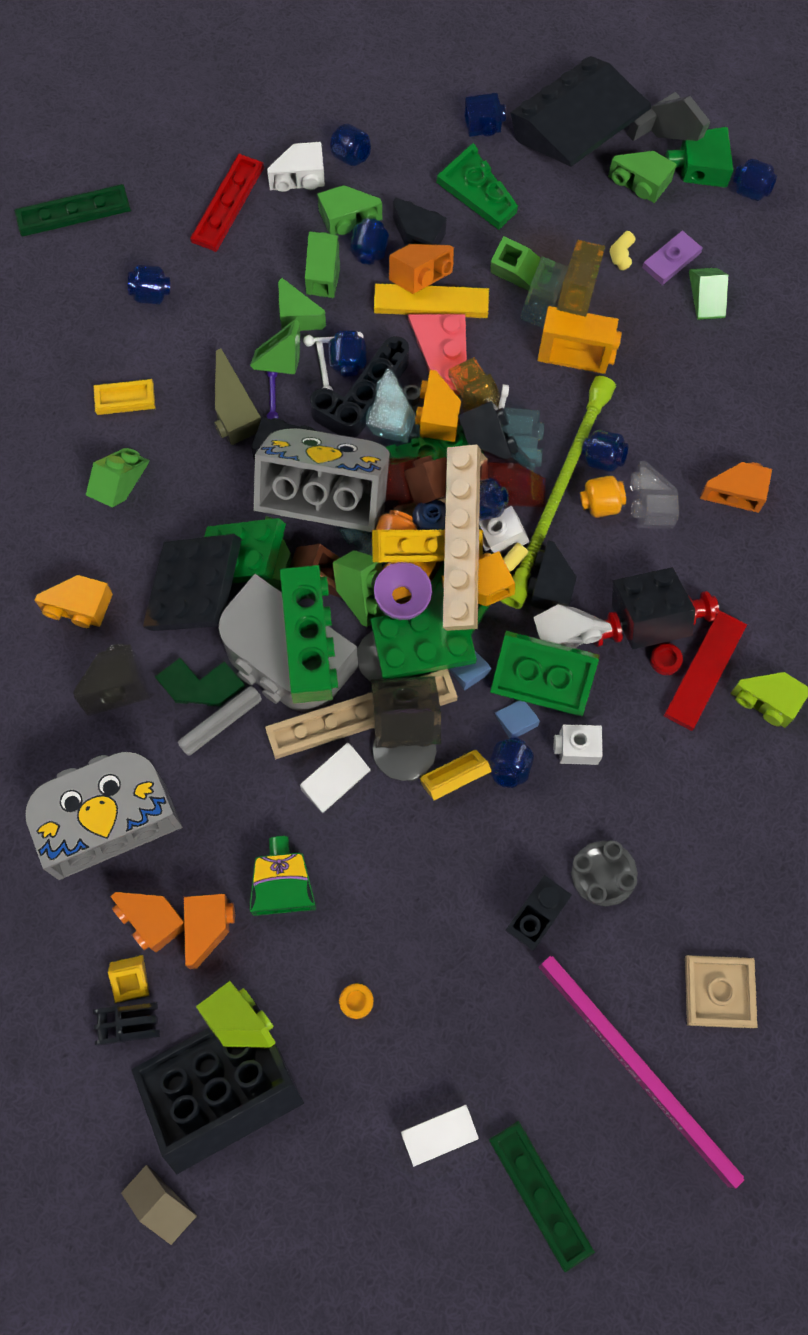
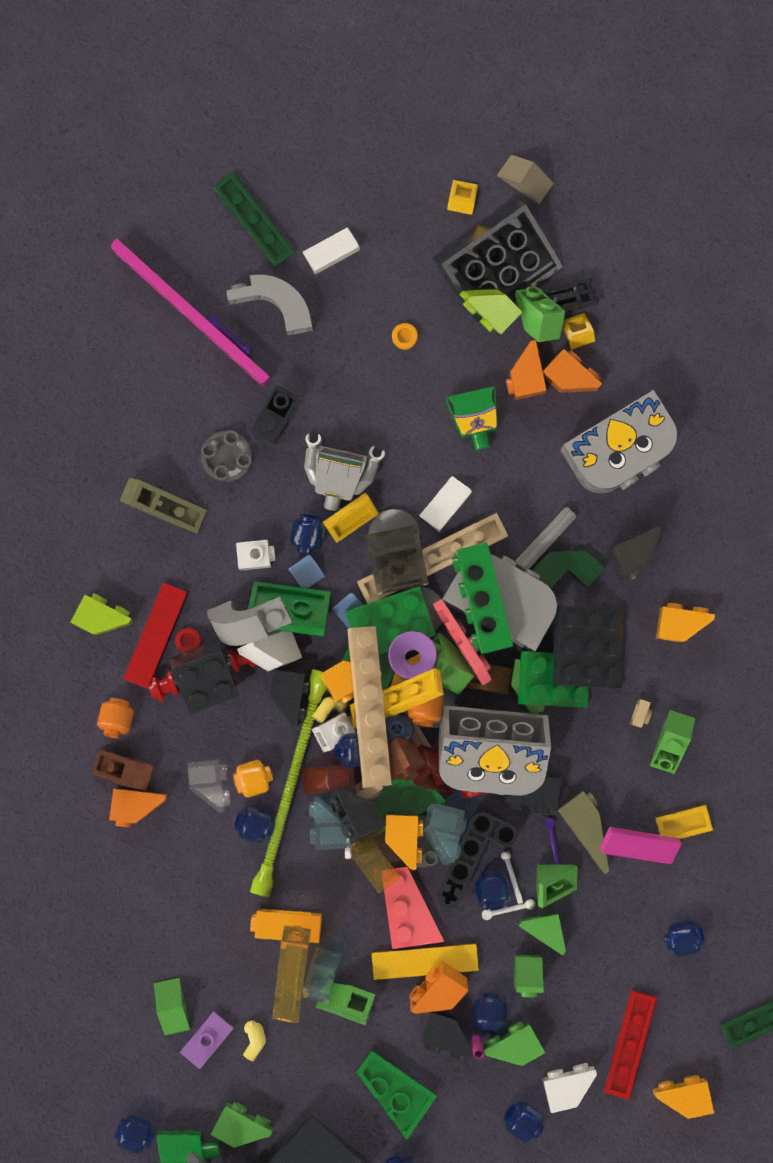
camera: 175 degrees right, 15 degrees up
(147, 509) = (641, 714): none -> tan plate
(172, 1001) = (540, 314): none -> bright green slope
(176, 372) = (640, 845): none -> dark pink tile
(180, 145) = (688, 1098): none -> light orange slope
(249, 1190) = (462, 197): none -> yellow slope
(343, 609) = (456, 631): none -> coral wing
(387, 210) = (477, 1046): none -> dark pink piece
(464, 829) = (338, 472): none -> light grey torso
(505, 1069) = (280, 294): none -> light grey arch
(599, 646) = (248, 625): none -> light grey arch
(606, 1056) = (215, 322): none -> dark purple hinge
(691, 820) = (162, 505): none -> olive slope
(720, 992) = (131, 379): tan tile -> none
(752, 523) = (122, 770): none -> copper slope
(759, 581) = (115, 717): none -> orange head

